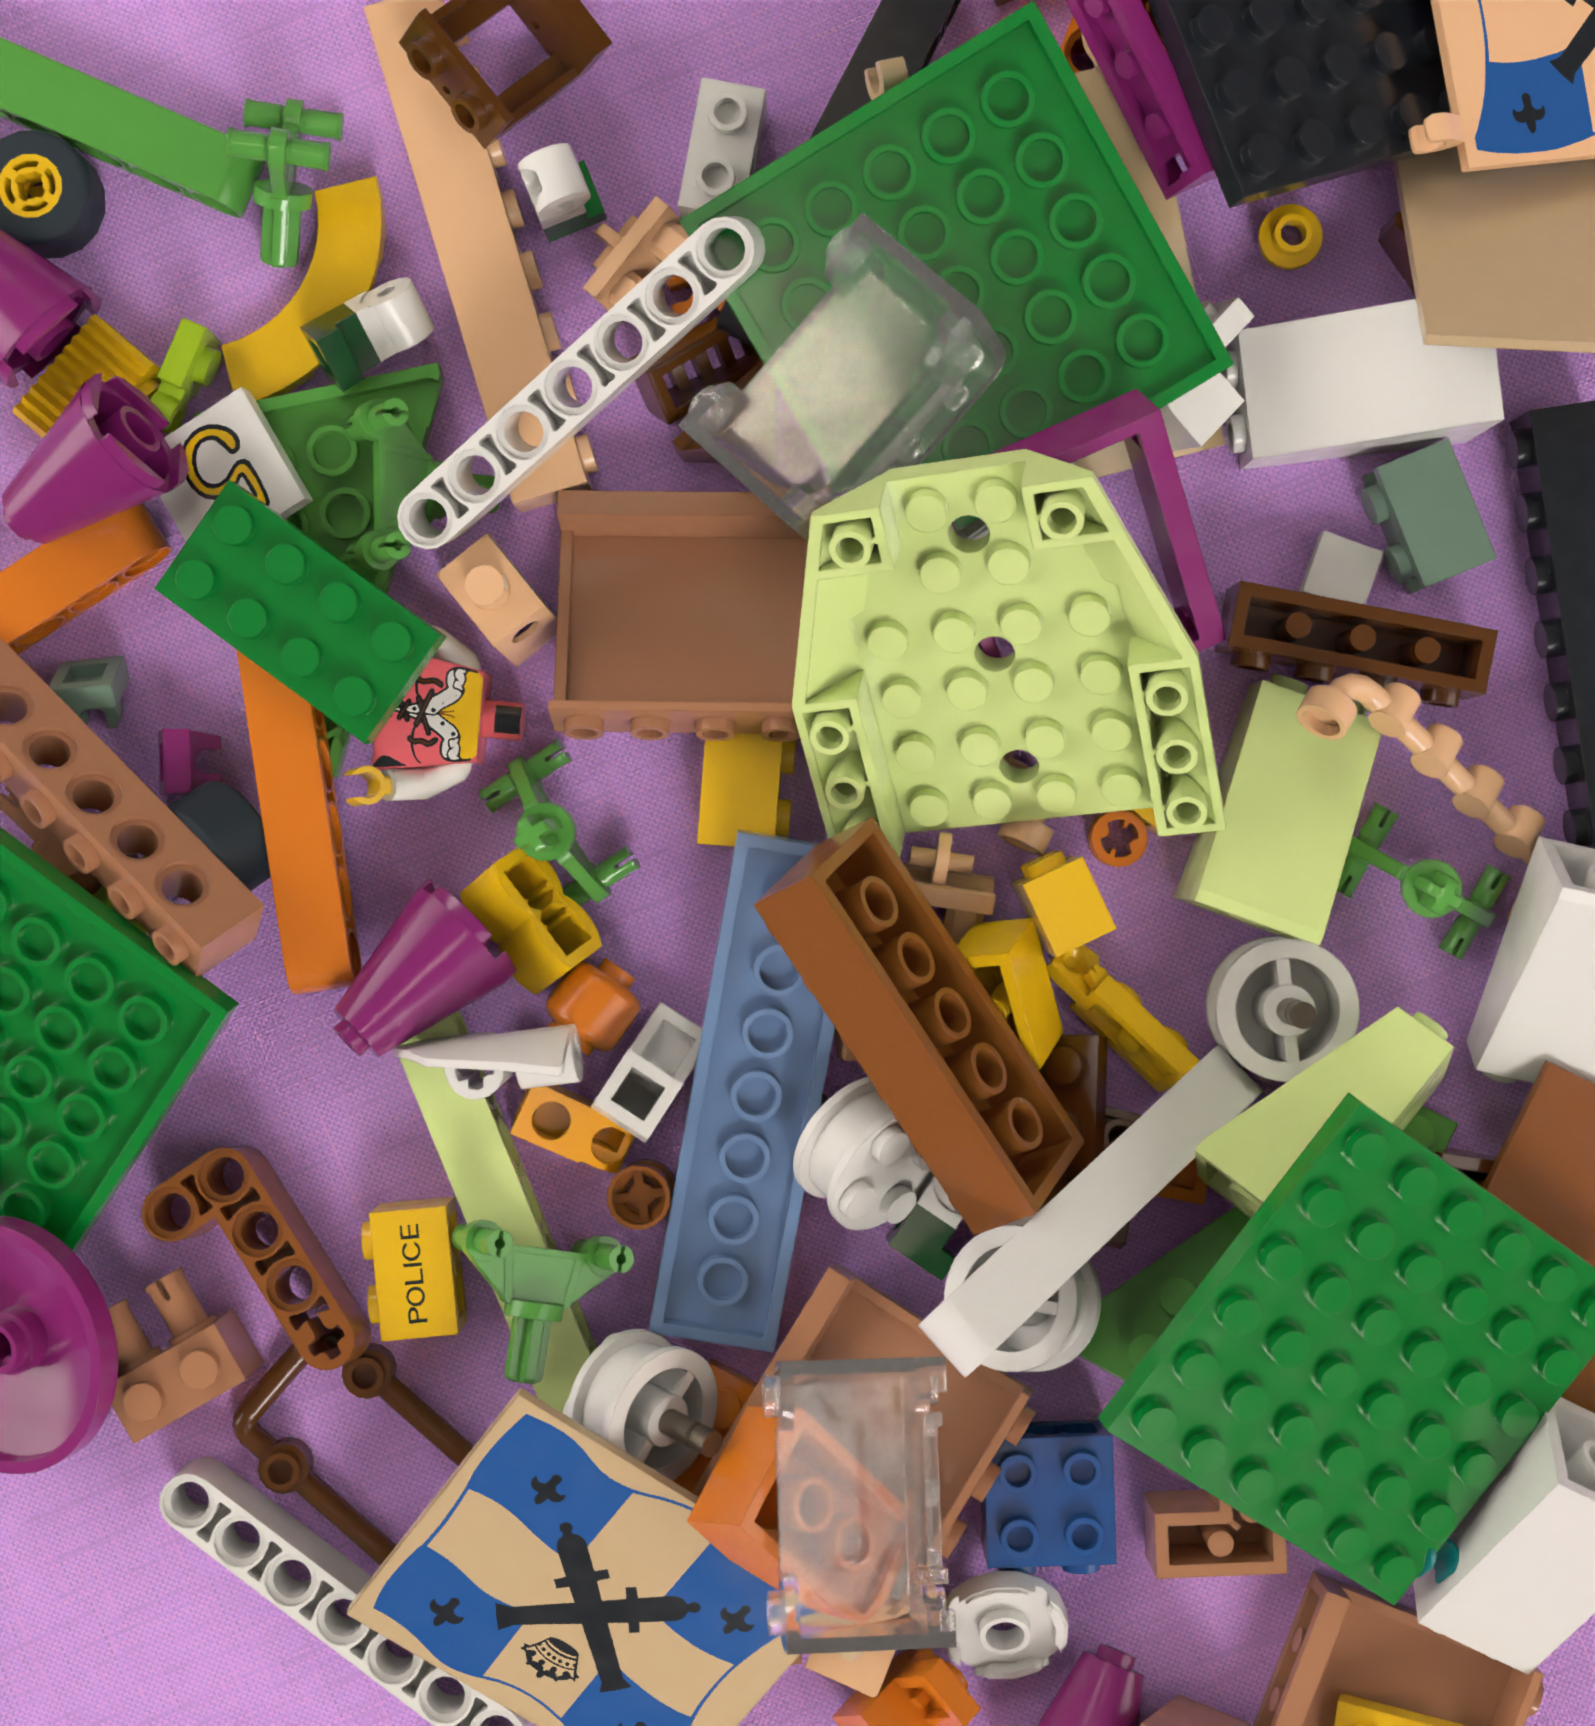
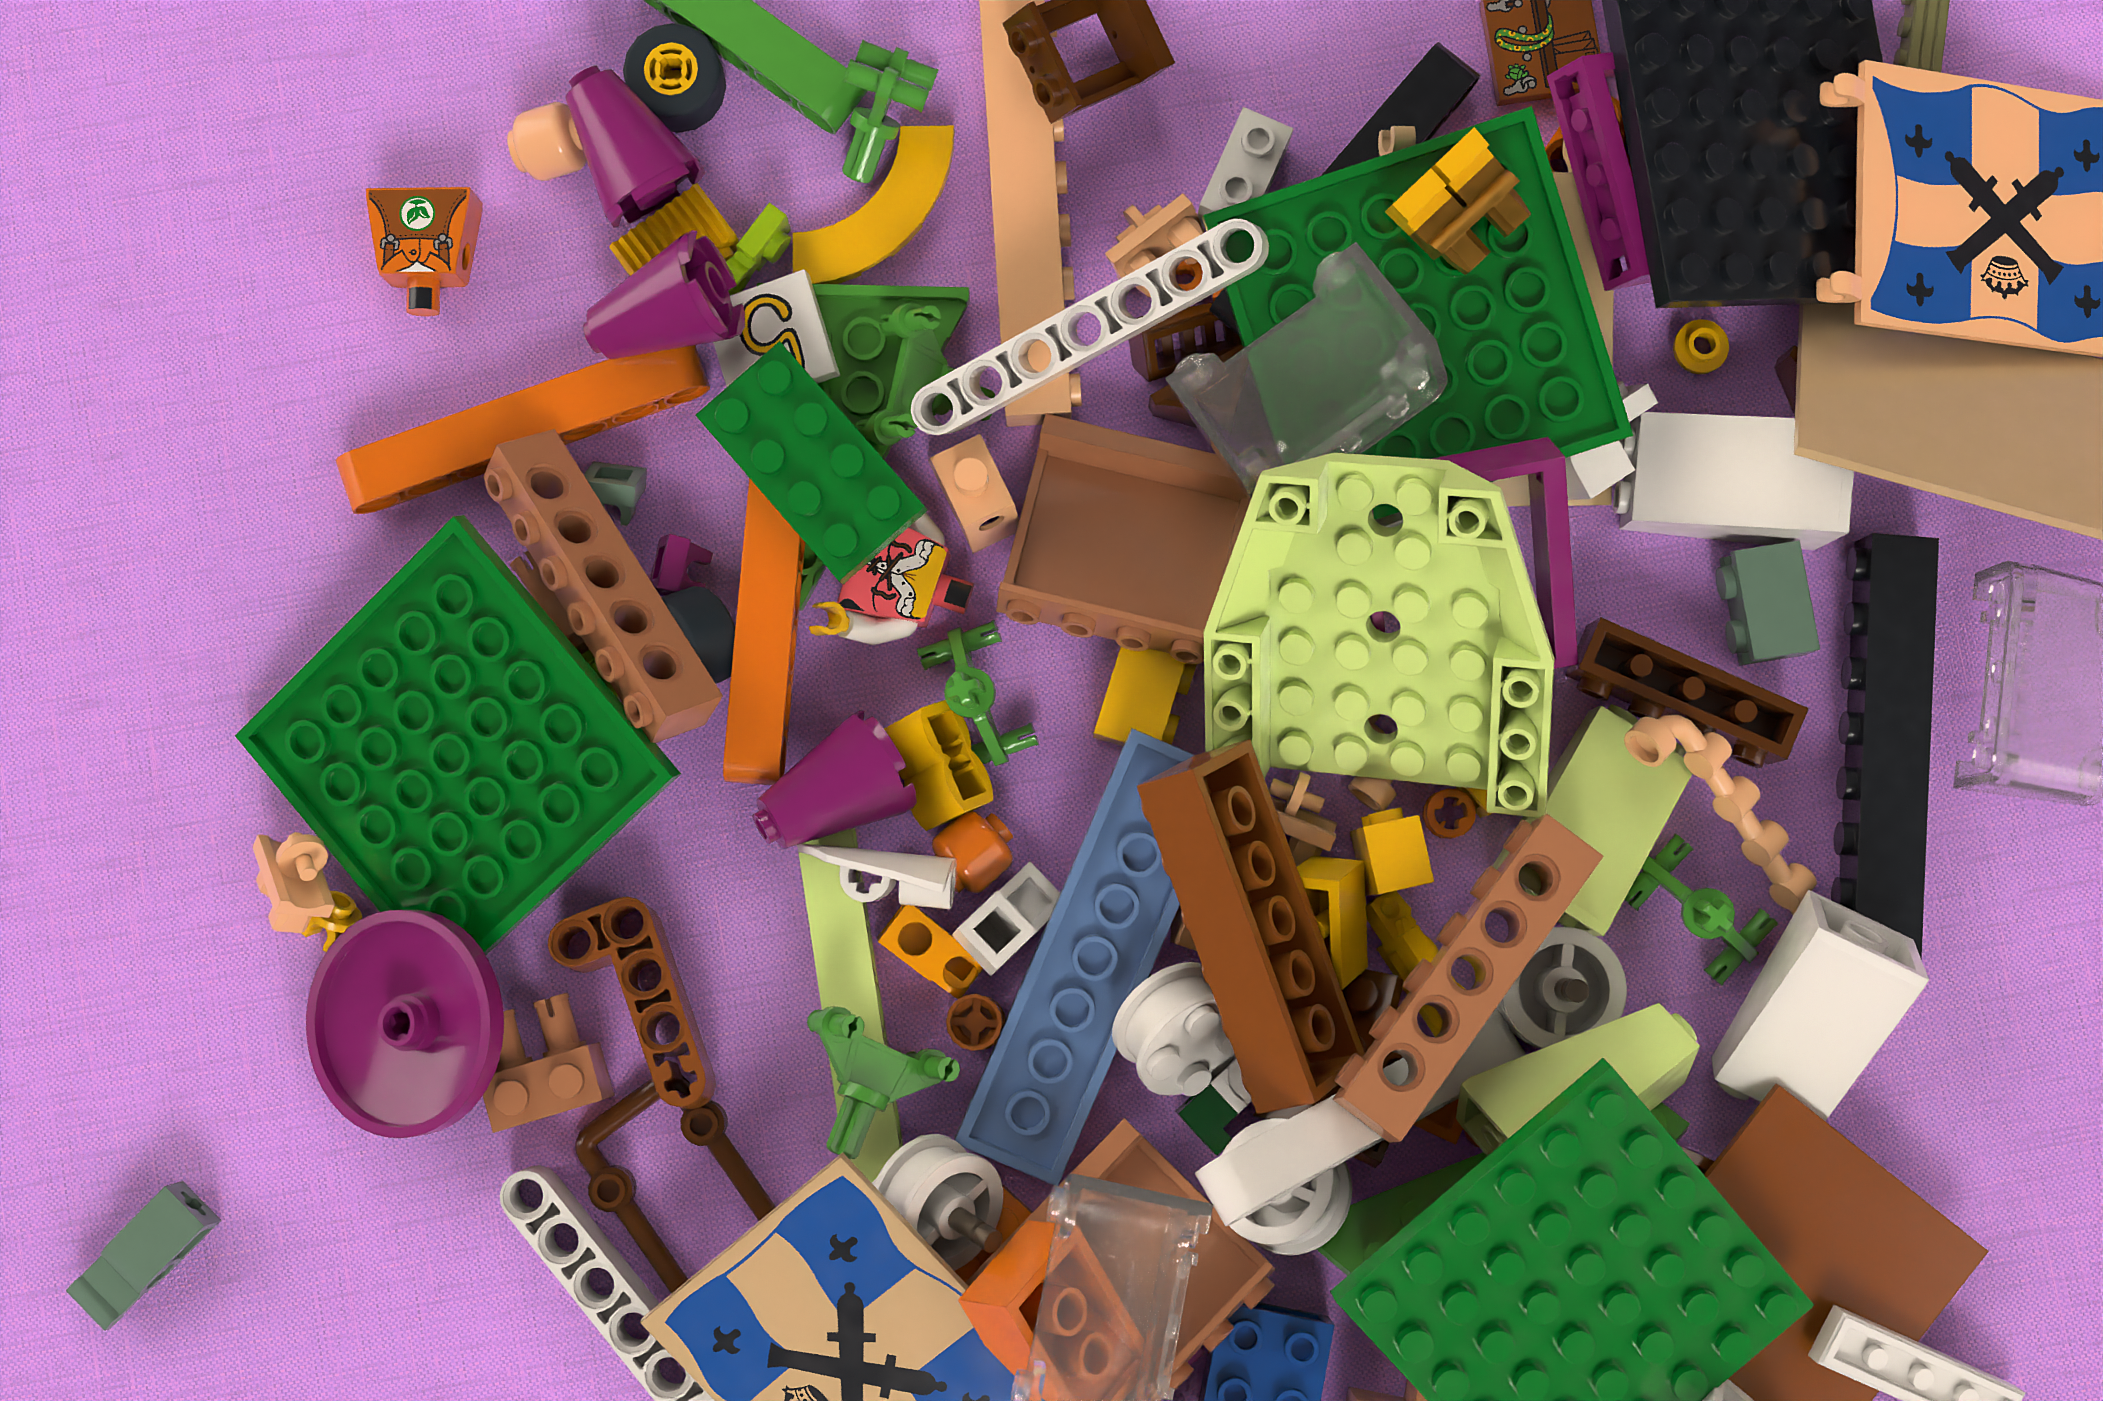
camera: 15 degrees right, 5 degrees down
(367, 331) = (917, 248): leg -> none
(415, 1269) = (766, 1042): yellow brick -> none
(561, 191) = (1104, 172): white leg -> none
(966, 131) = (1454, 197): none -> pearl gold hips
(1259, 882) = (1563, 868): none -> nougat brick
(1341, 569) = (1688, 629): white tile -> none

